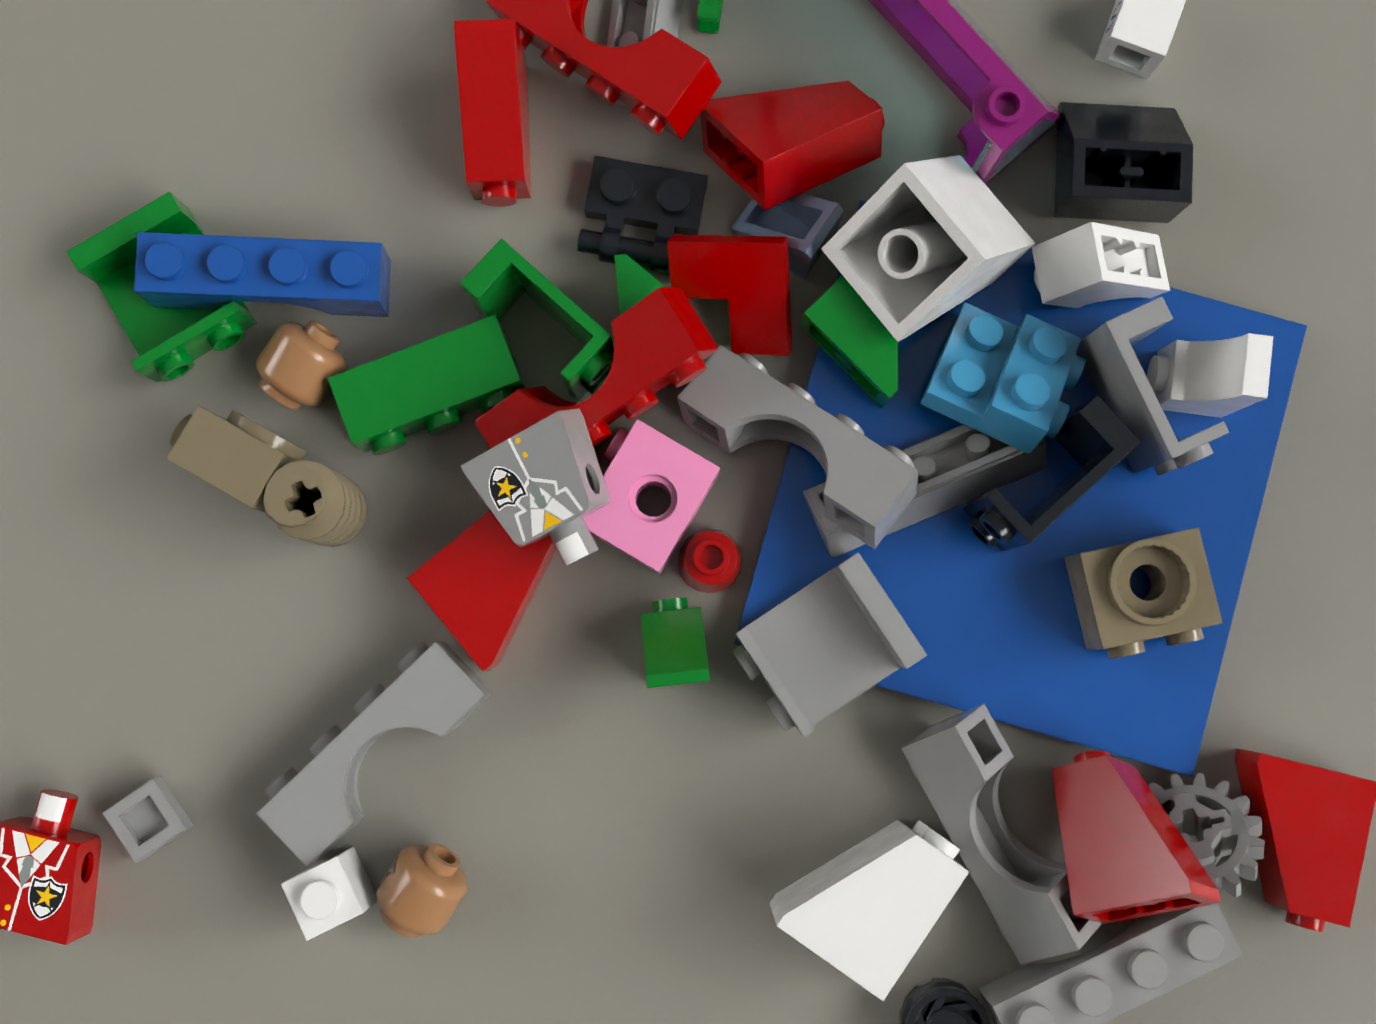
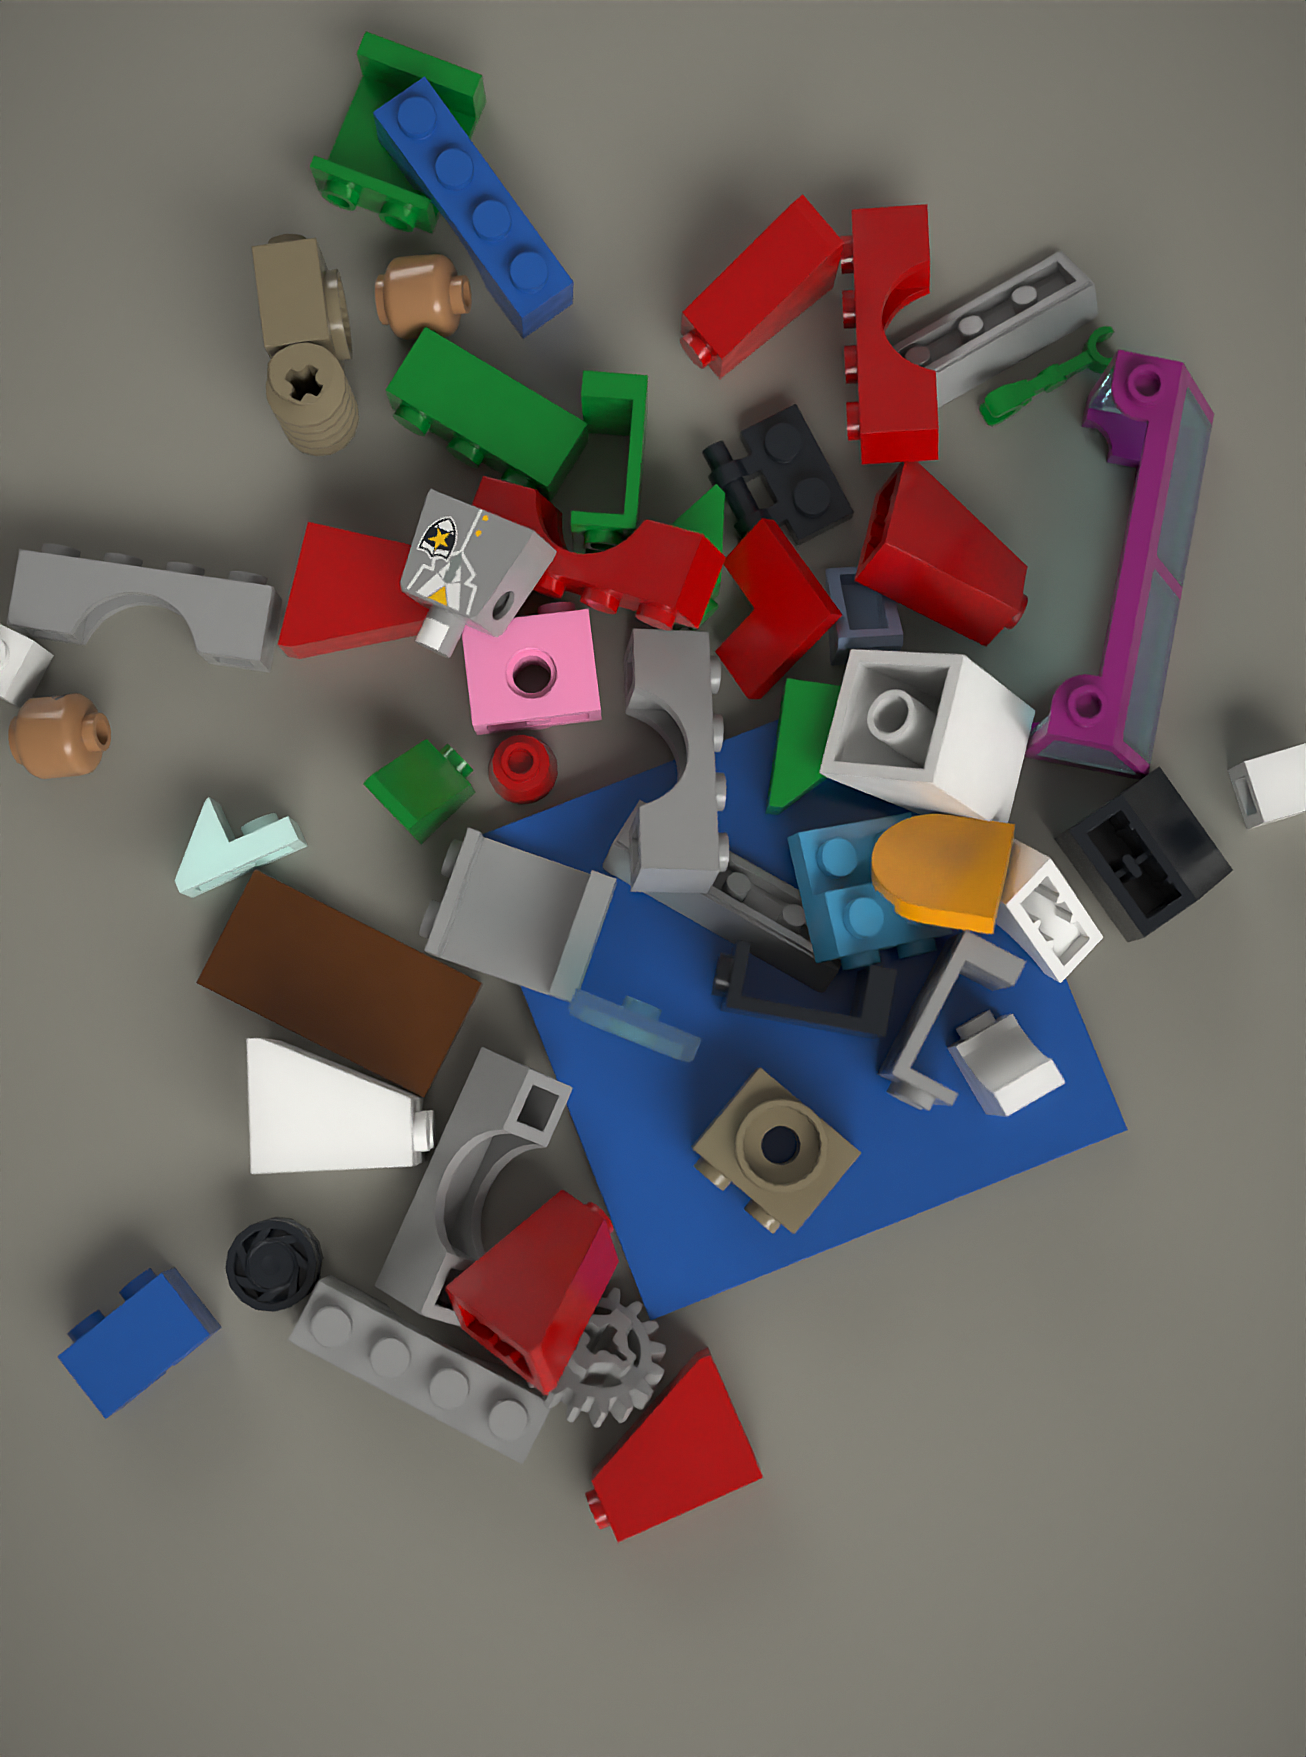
camera: 50 degrees right, 0 degrees up
(605, 836) = (218, 857): none -> light aqua slope
(768, 818) = (340, 983): none -> reddish brown tile
(983, 620) = (636, 1023): none -> clear light blue plate
(1042, 305) = (944, 869): none -> light orange tile

